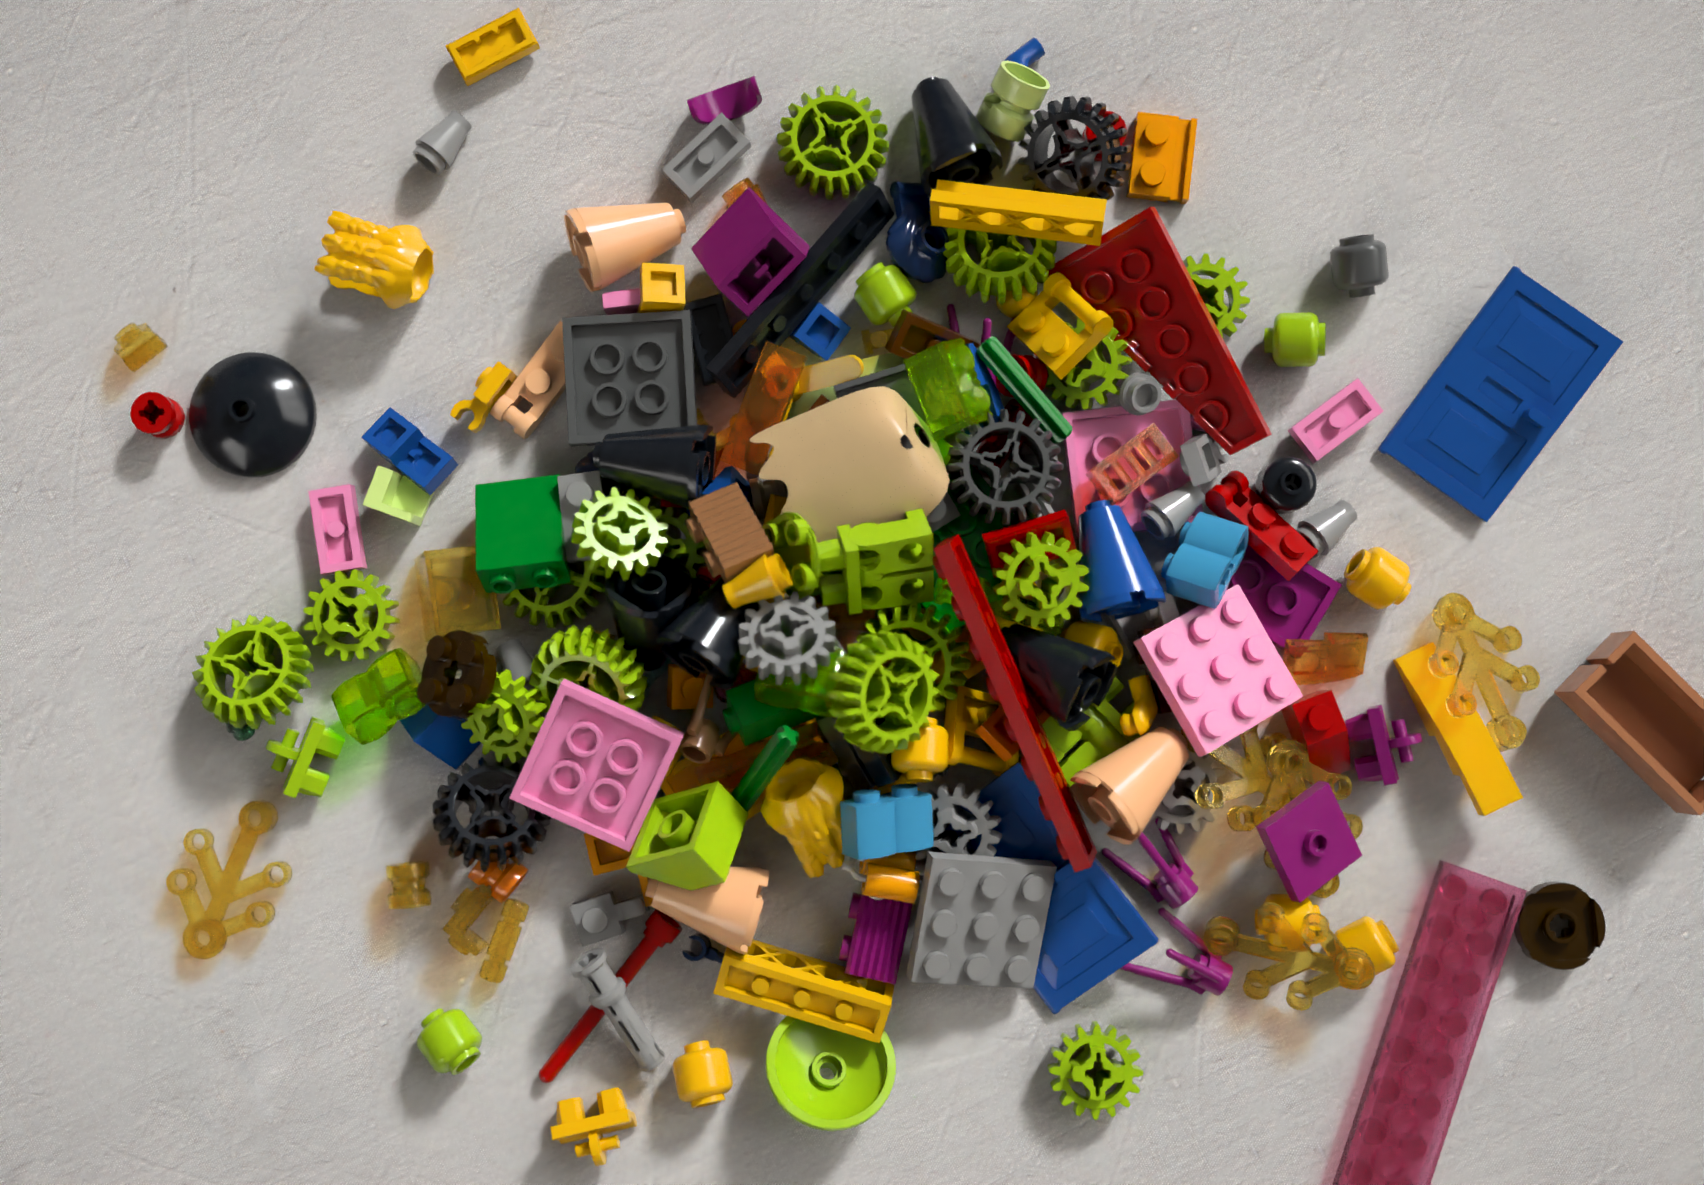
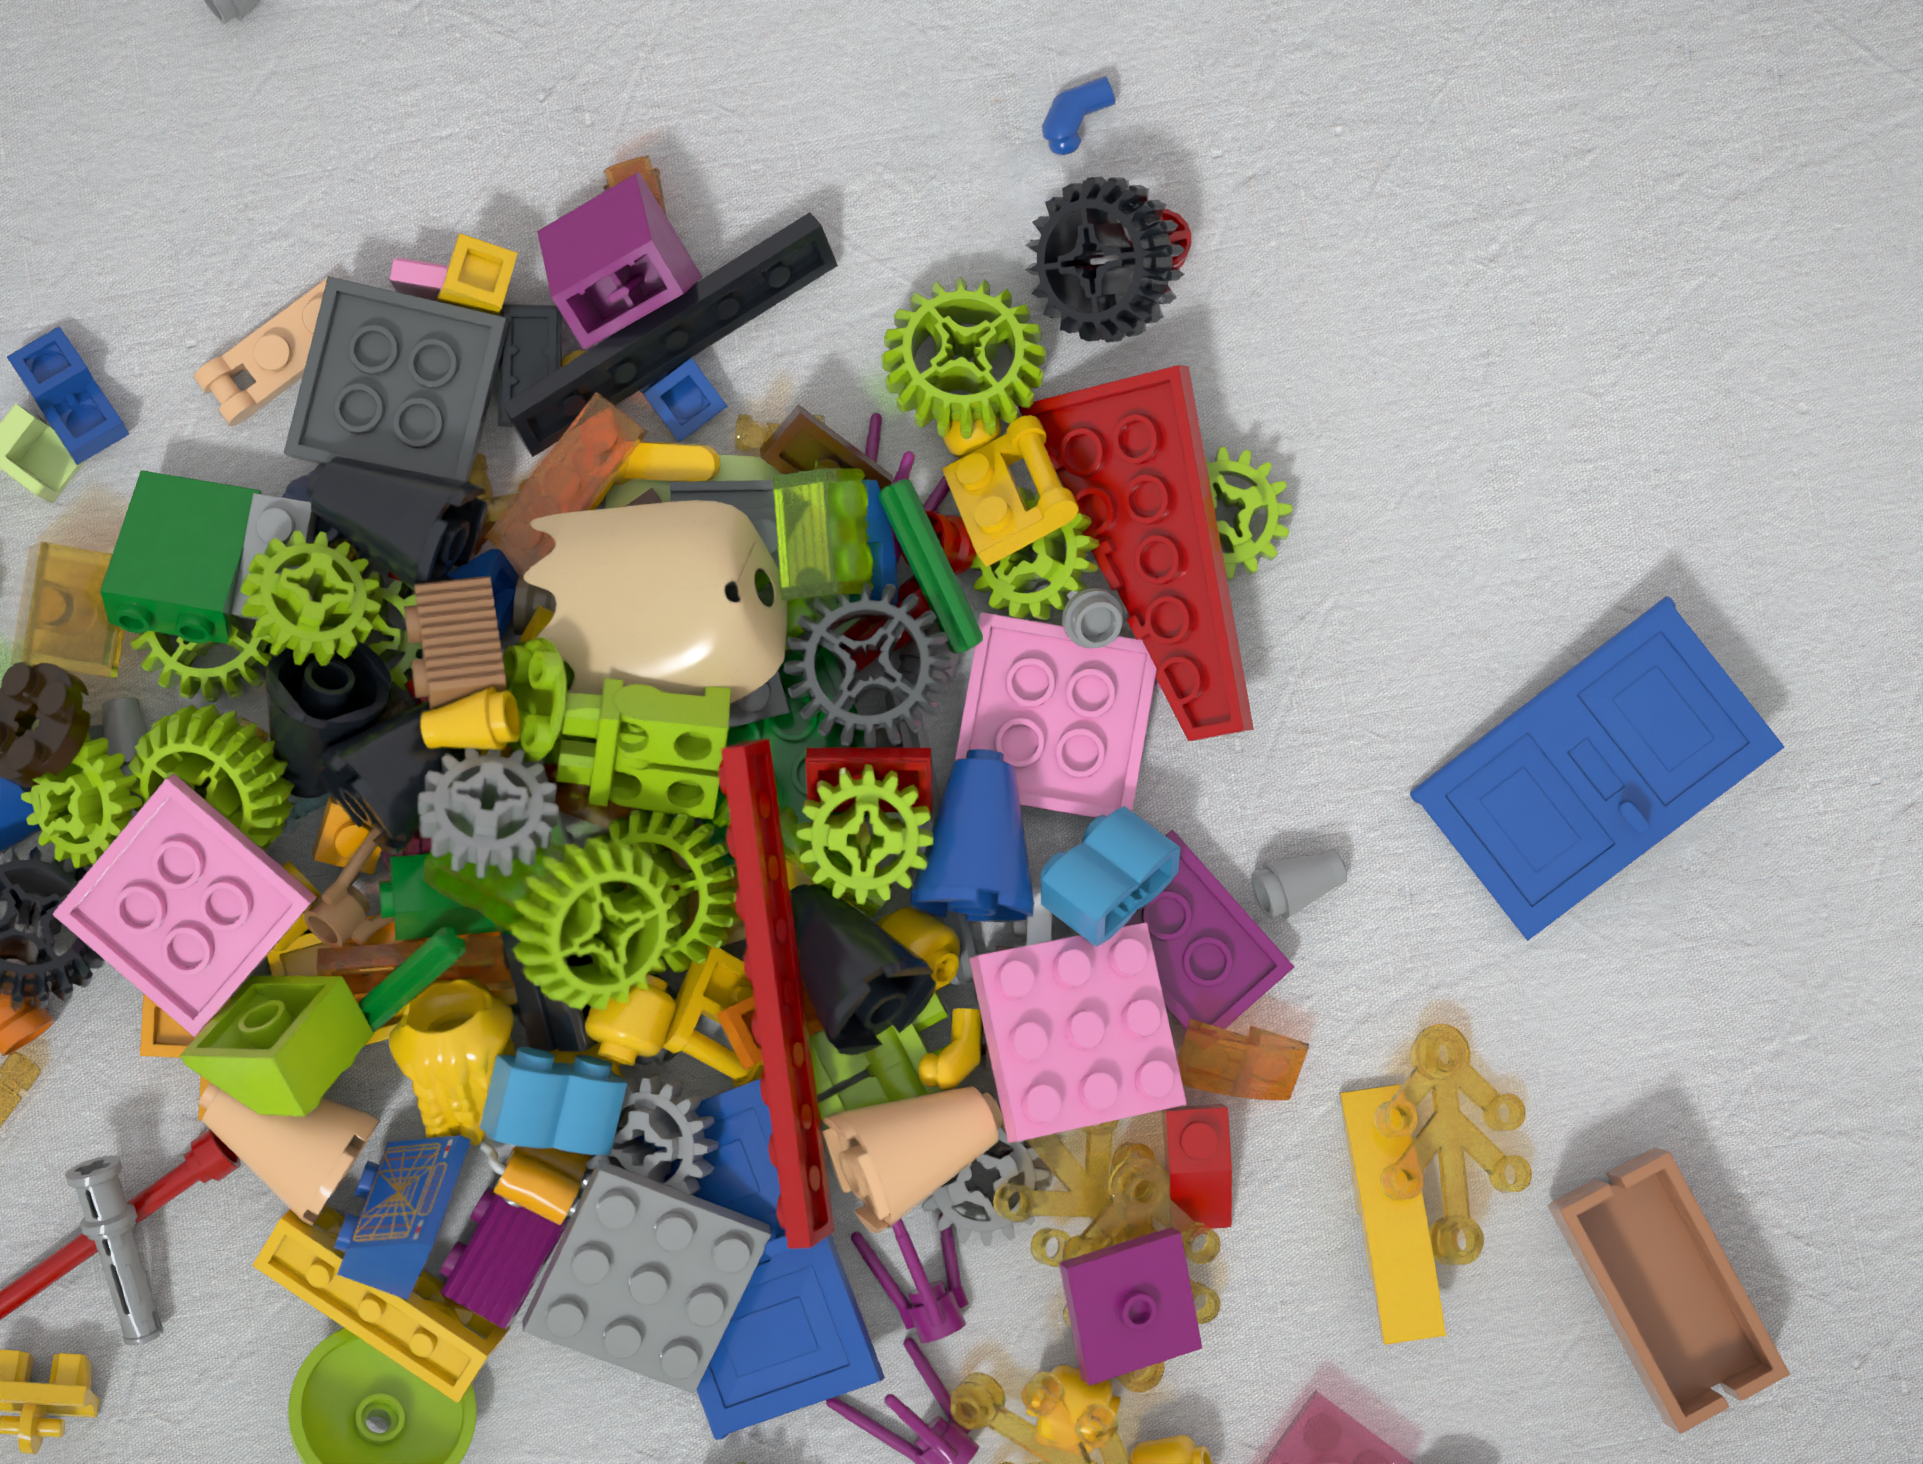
camera: 20 degrees right, 0 degrees up
(377, 259) = (98, 120): yellow piece -> none
(490, 387) = (205, 339): yellow plate -> none
(602, 916) = (137, 1116): light grey plate -> none
(619, 238) = (445, 189): light nougat cone -> none
(702, 1074) = (205, 1373): yellow head -> none
(706, 157) = (599, 110): light grey plate -> none
(707, 950) = (264, 1207): dark blue hand -> none
(731, 100) = (647, 40): magenta helmet -> none
(805, 927) = (400, 1212): none -> blue slope
(859, 121) = (767, 91): lime gear -> none
(884, 294) = (785, 373): lime head -> none
(911, 239) = (856, 303): dark blue animal -> none
(950, 137) = (940, 188): black cone -> none
(1014, 96) = (1048, 150): yellowish green wheel -> none
(1017, 212) = (997, 317): yellow fence -> none
(1104, 483) = (1006, 734): clear orange slope -> none
(1161, 158) = (1233, 297): light orange plate -> none
(1170, 512) = (1085, 793): light grey cone -> none
(1201, 459) = (1149, 734): light grey plate -> none
(1268, 531) = (1208, 853): red plate -> none
(1273, 488) = (1236, 805): black head -> none
(1295, 339) = (1338, 607): lime head -> none
(1335, 420) = (1359, 736): bright pink plate -> none
(1359, 265) = (1458, 529): dark grey head -> none
(1377, 578) = (1347, 972): yellow head -> none
(1380, 765) = (1276, 1231): magenta hips -> none

